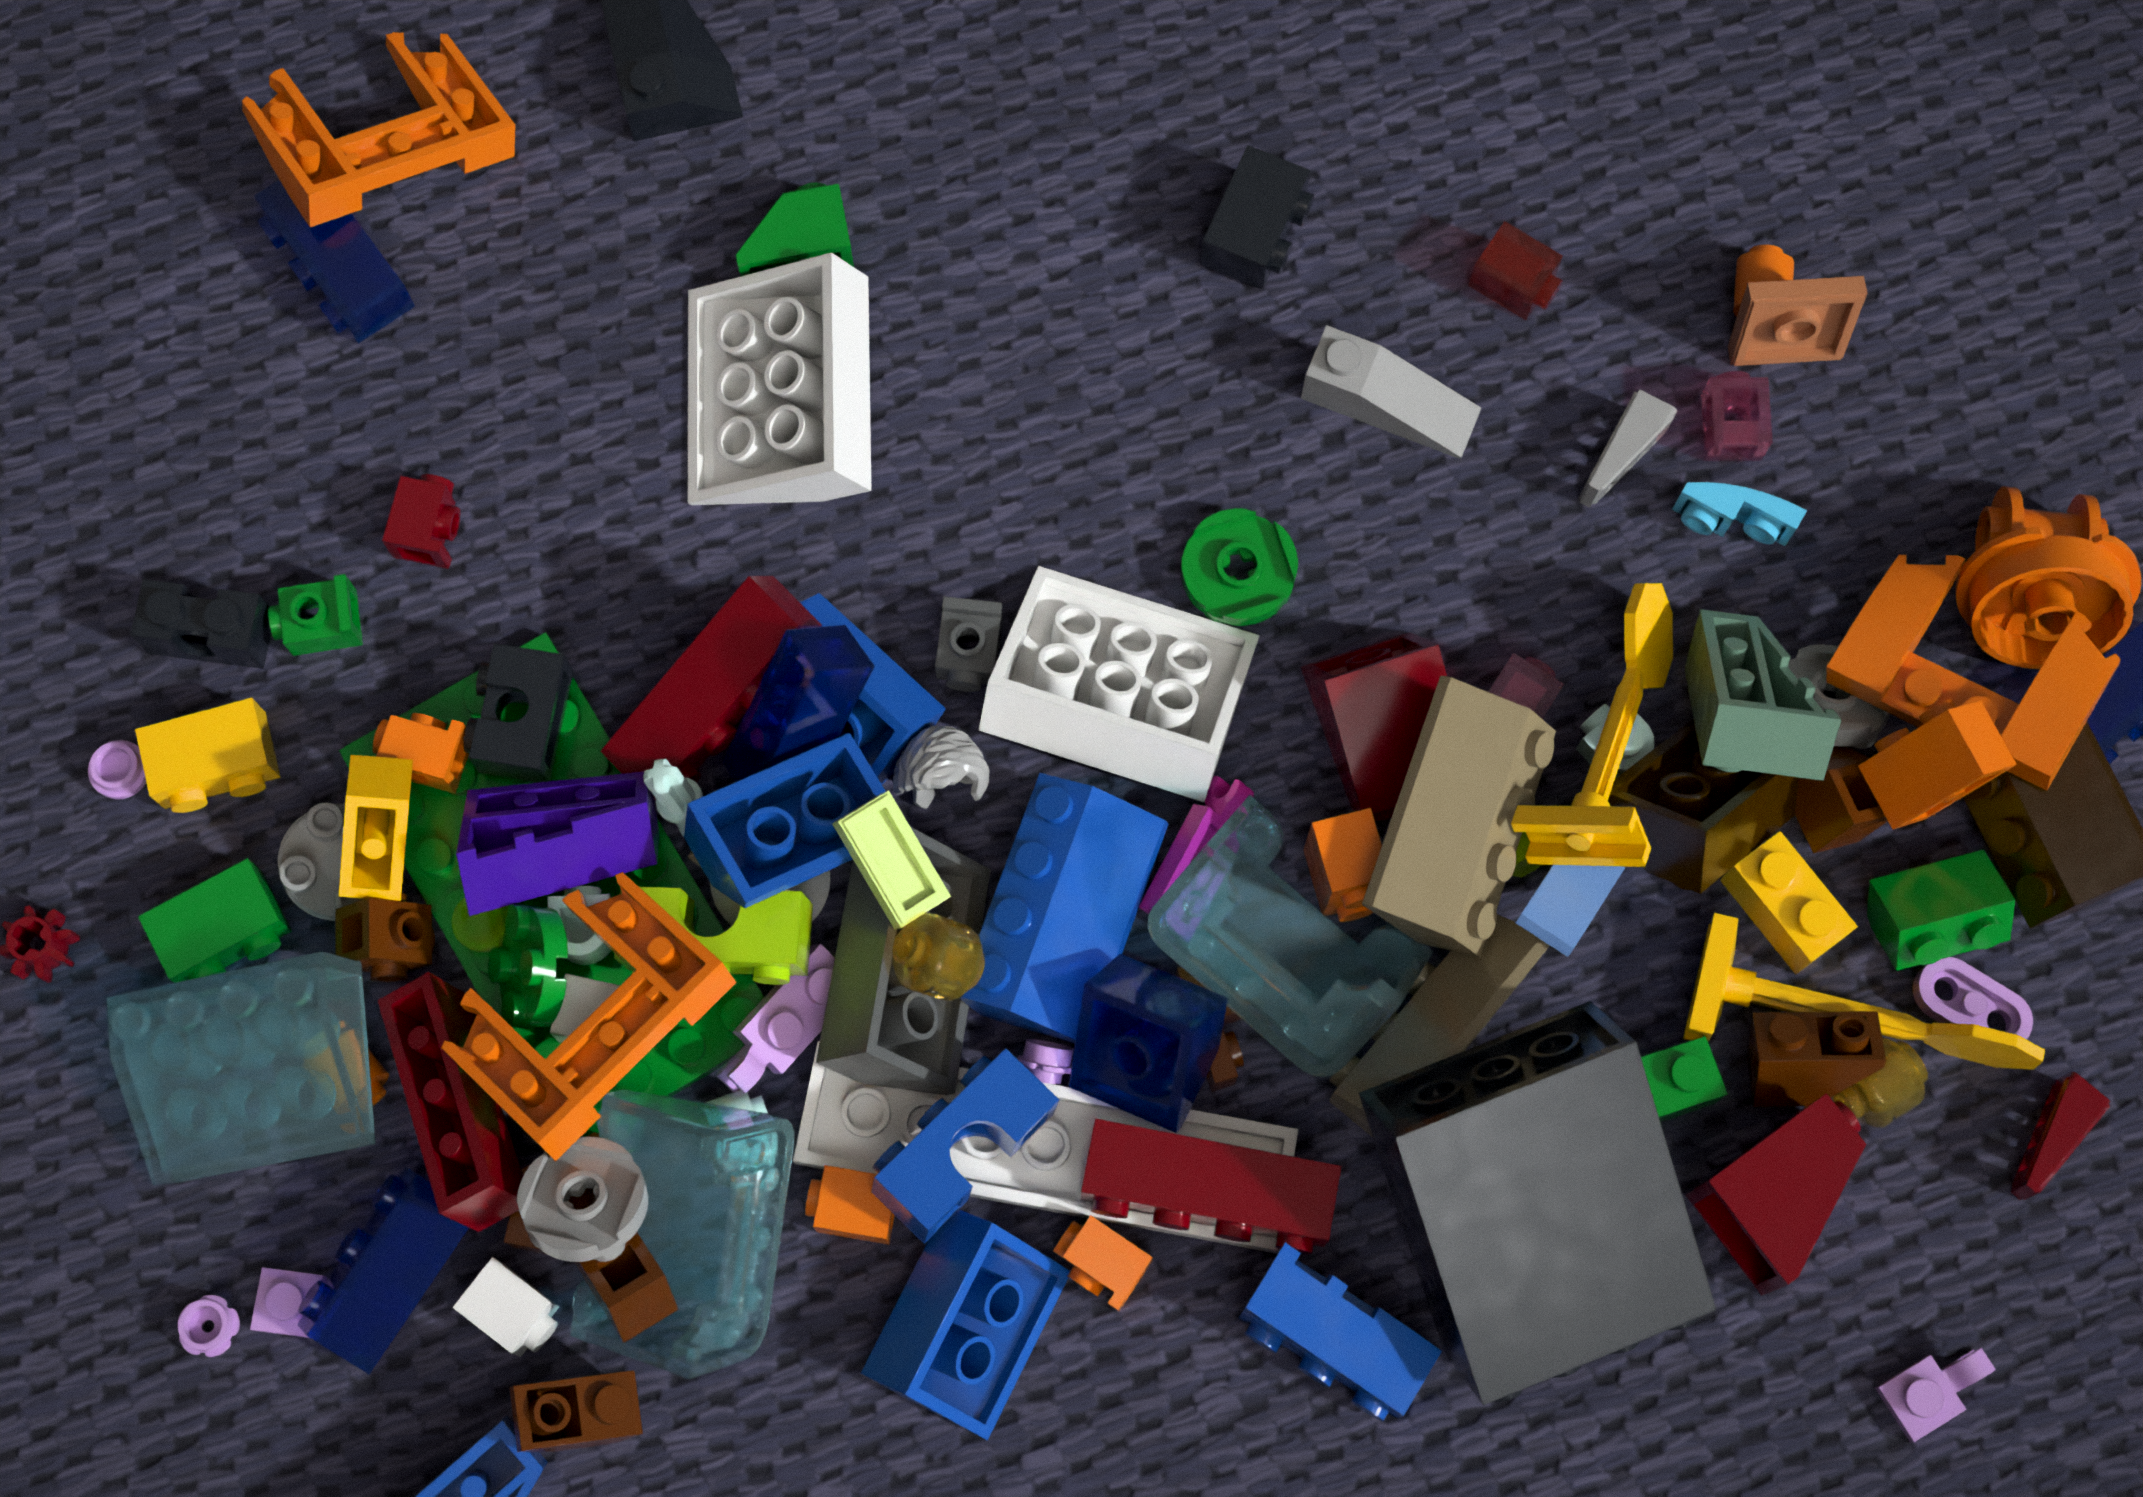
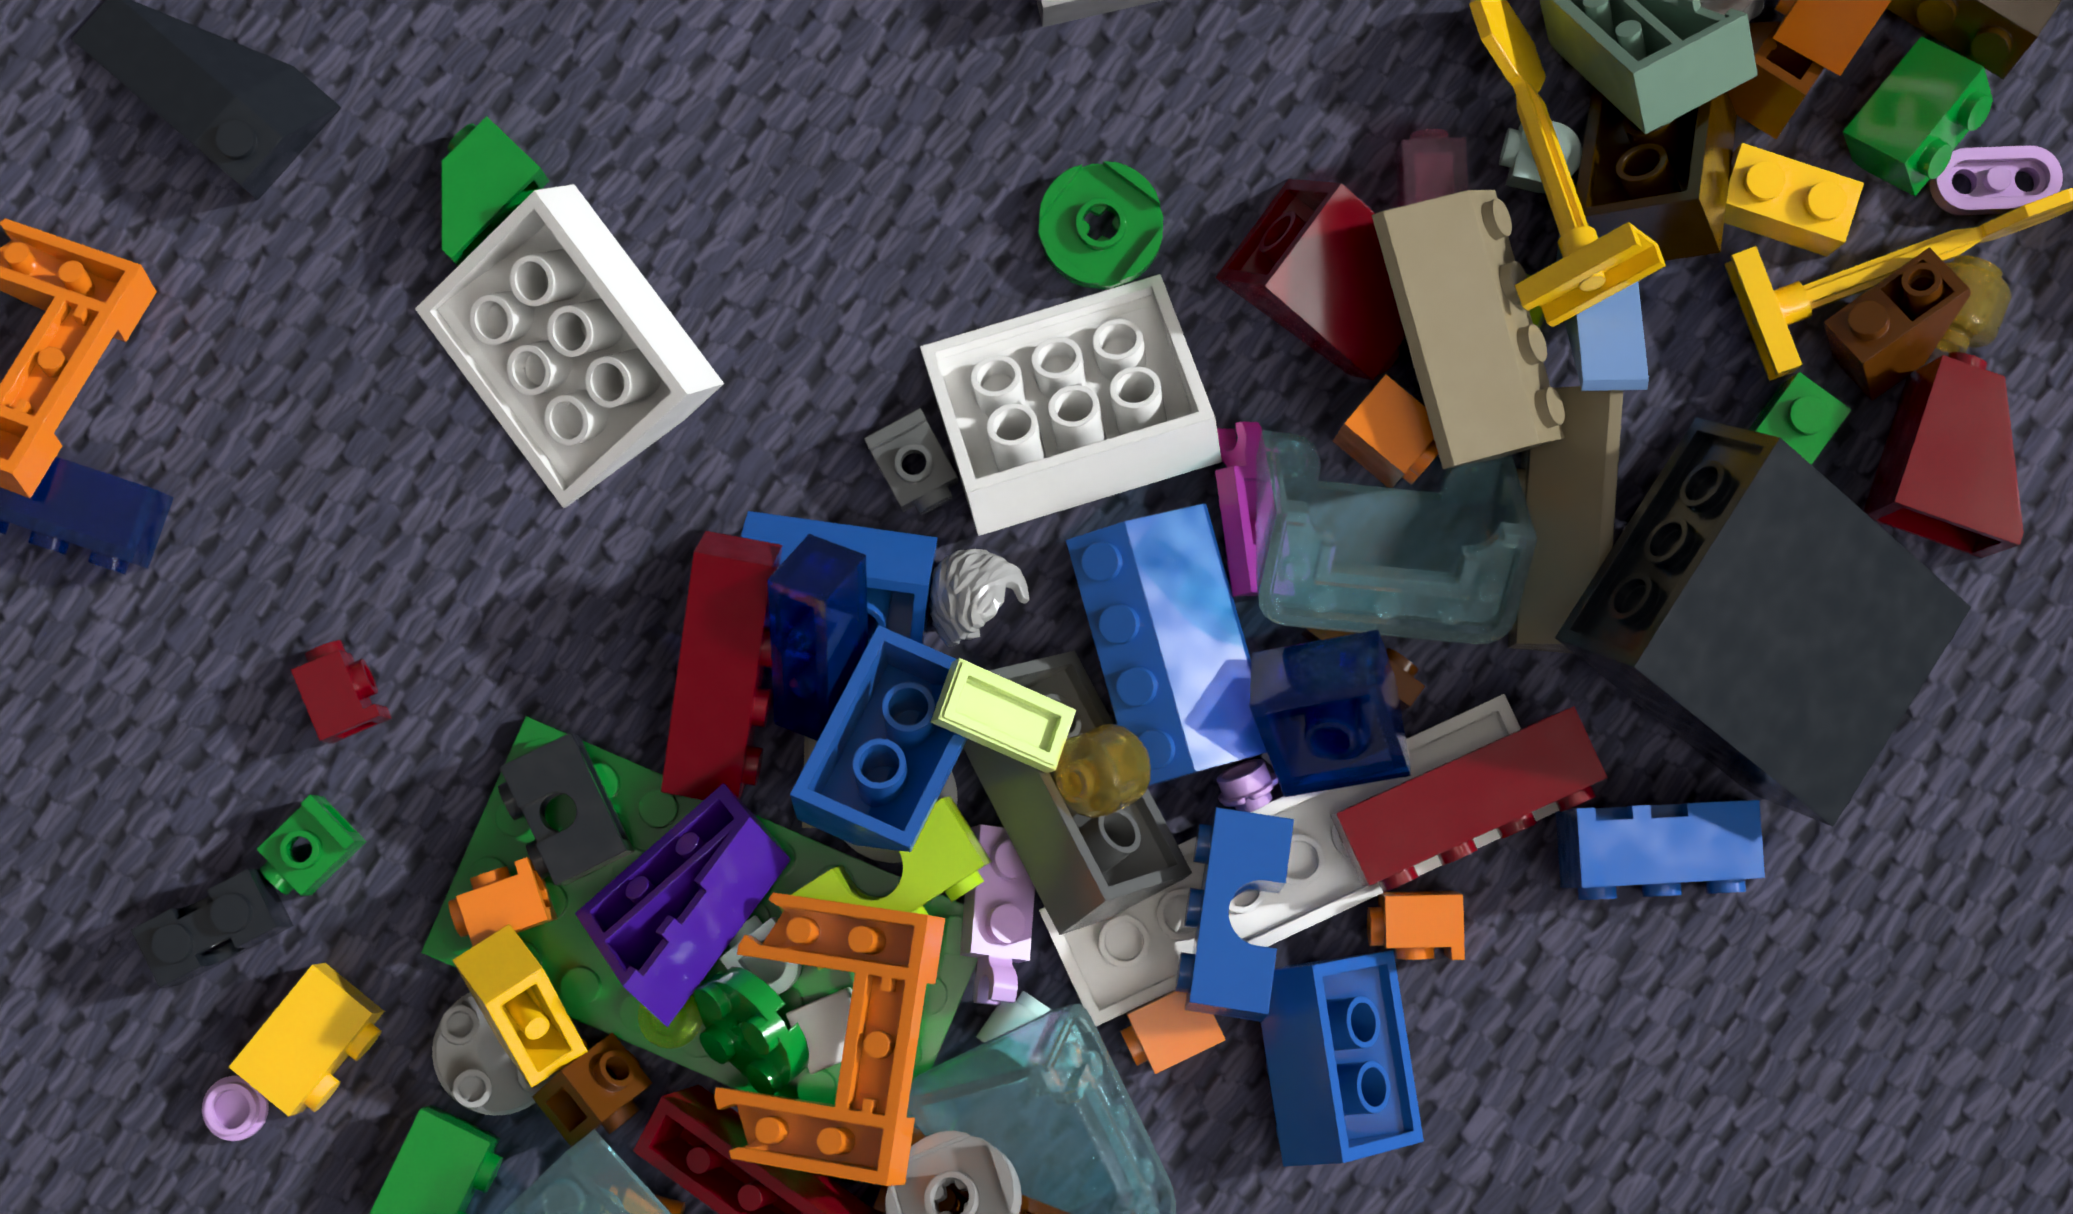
camera: 35 degrees left, 10 degrees up
(671, 791) = (763, 787): light aqua axle -> none

